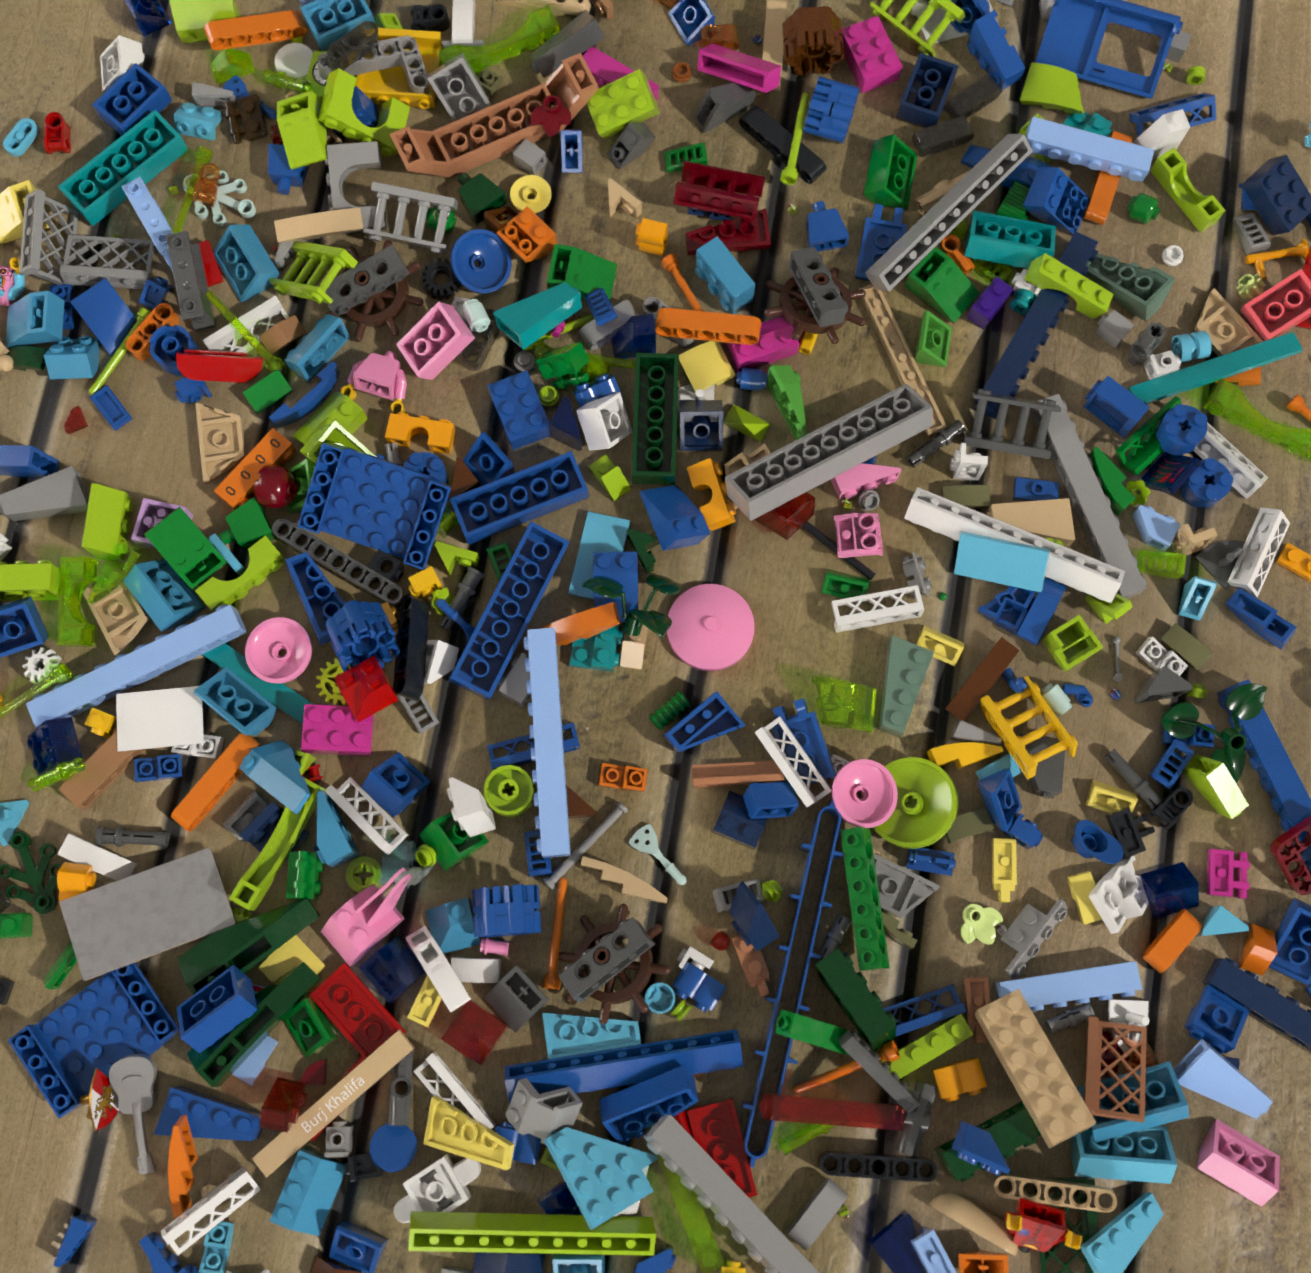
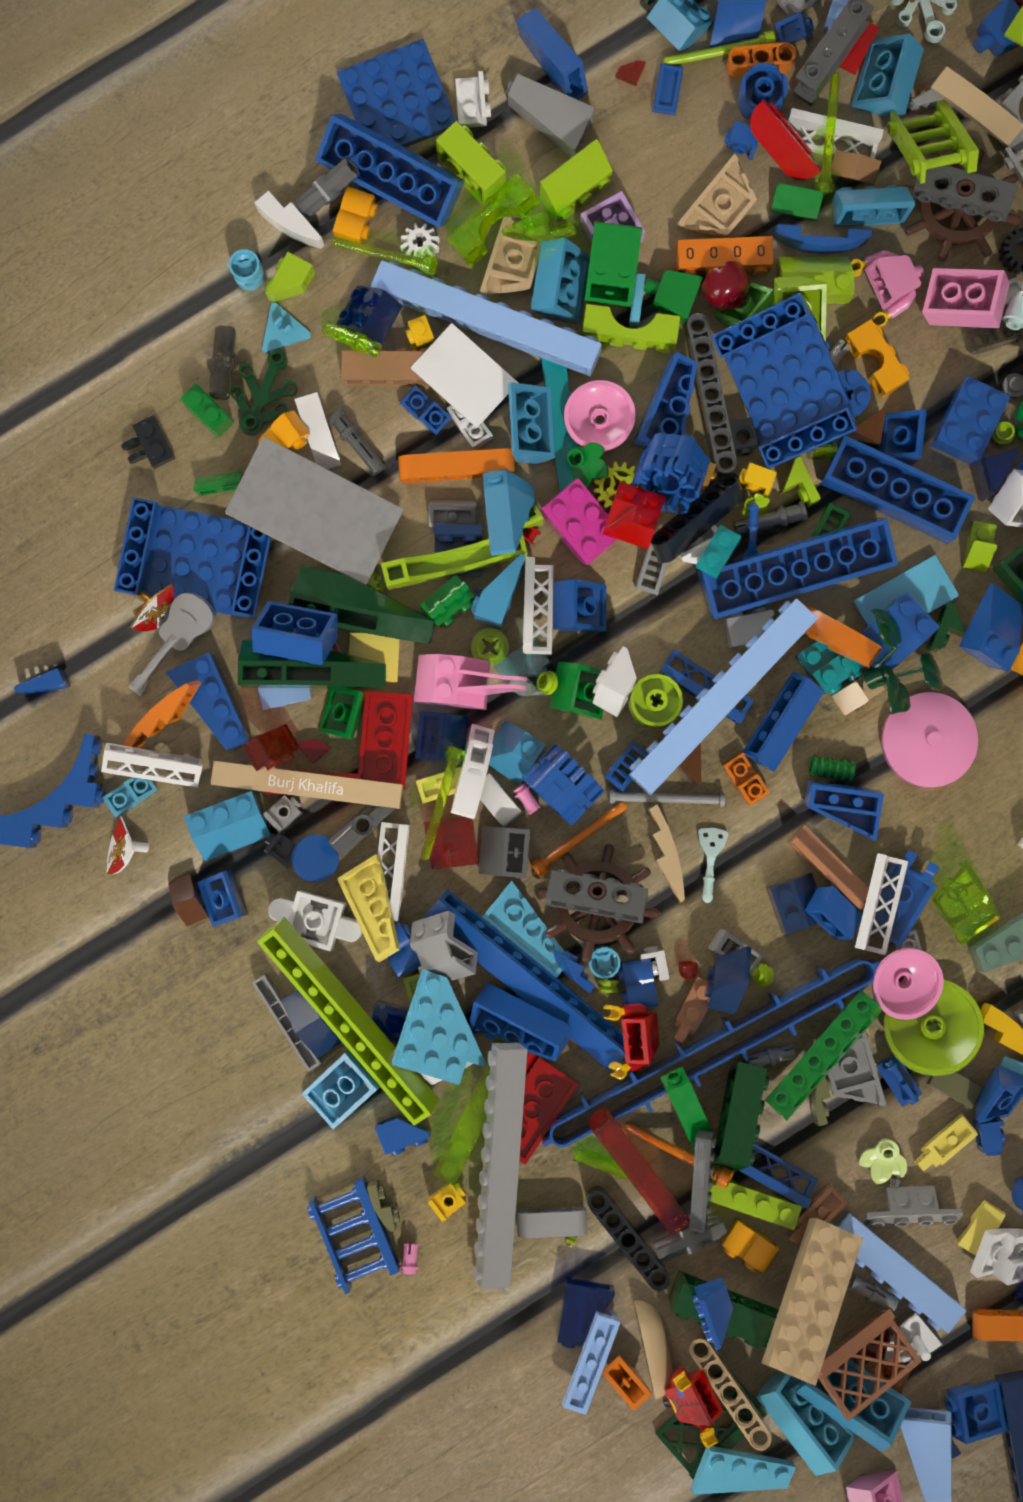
camera: 50 degrees right, 10 degrees up
(305, 687) = (591, 464): none -> green plate
(415, 974) = (454, 757): none -> clear neon green piece
(446, 654) = (718, 551): none -> teal plate
(606, 715) = (784, 723): none -> blue brick
(645, 1026) = (573, 970): none -> blue slope
(735, 1021) = (639, 1037): none -> red torso

